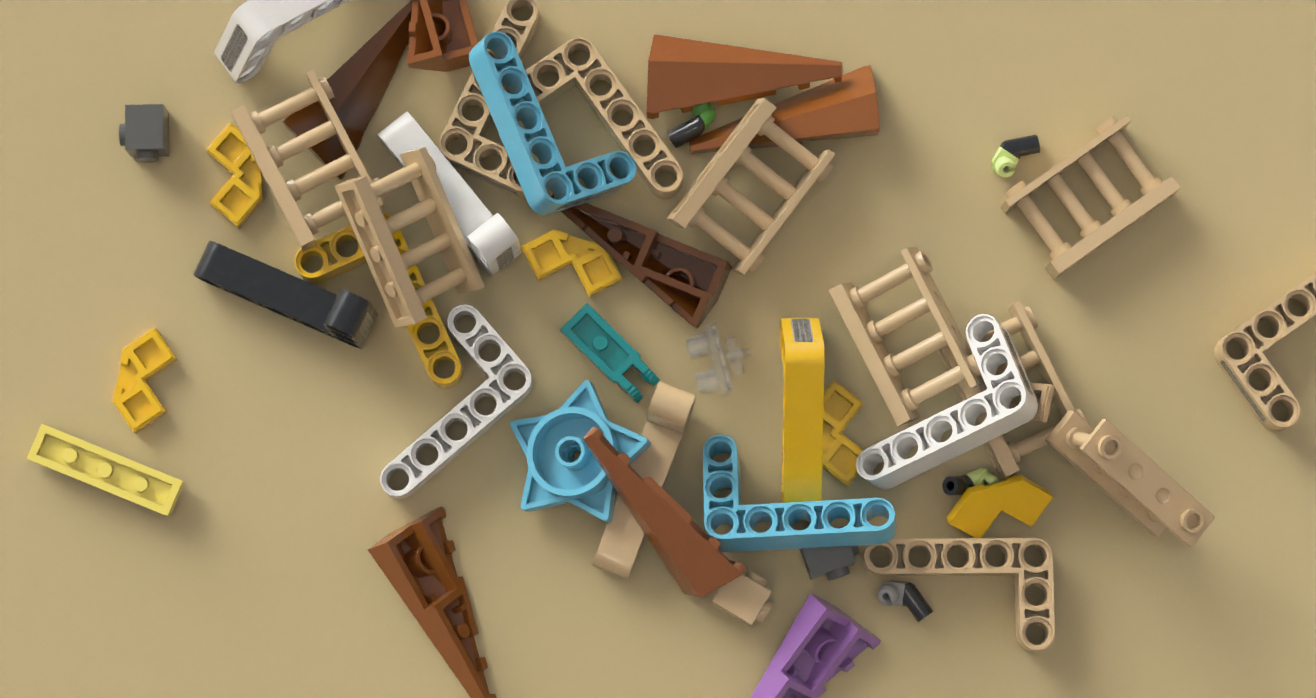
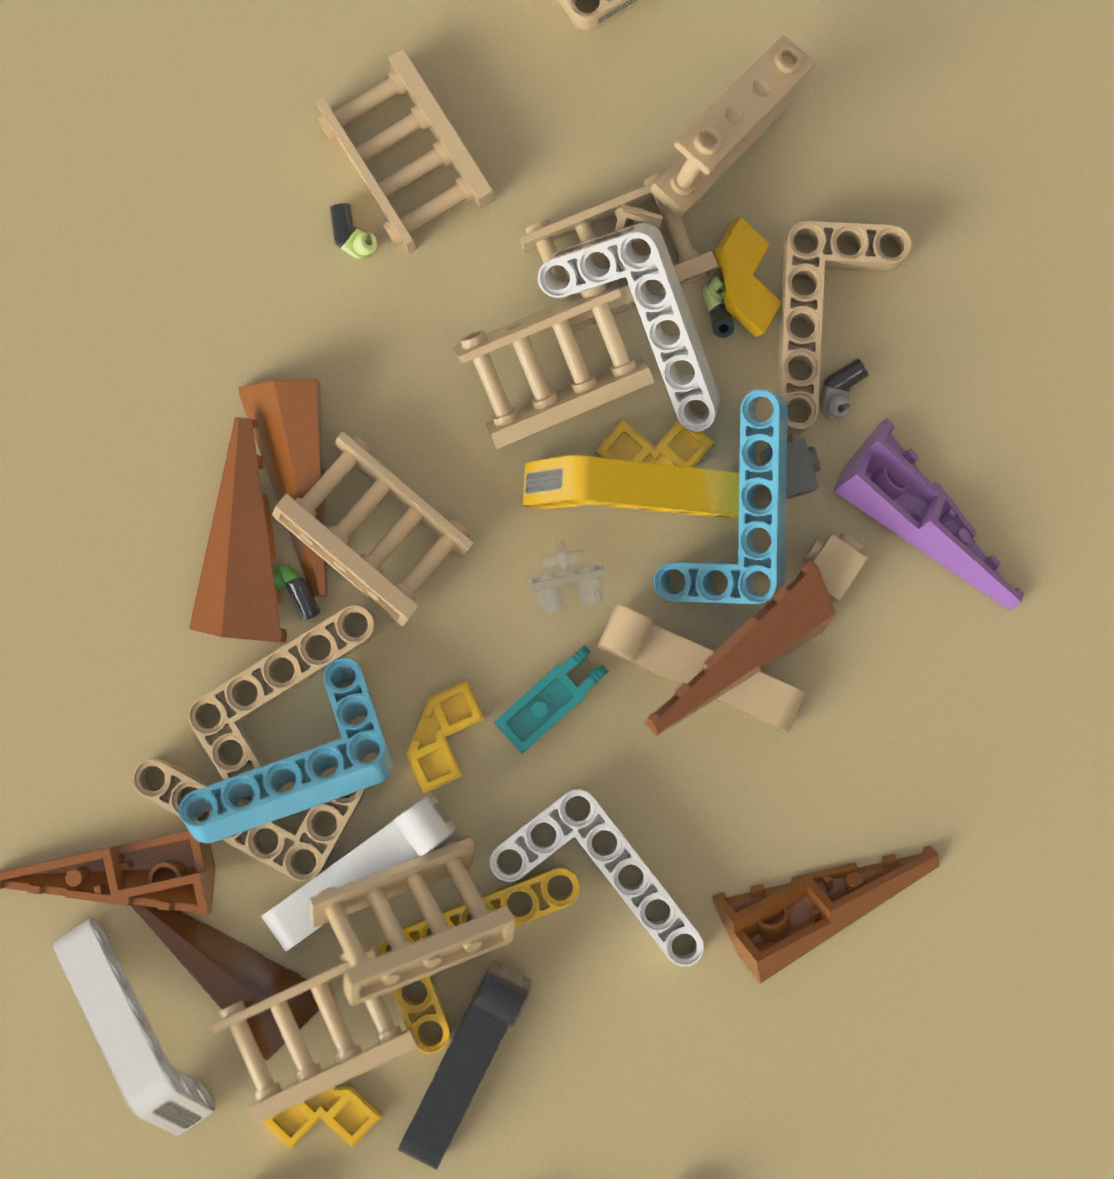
camera: 80 degrees left, 5 degrees up
(550, 449) = (658, 772): medium azure plate -> none
(674, 271) = (462, 624): reddish brown wedge -> none

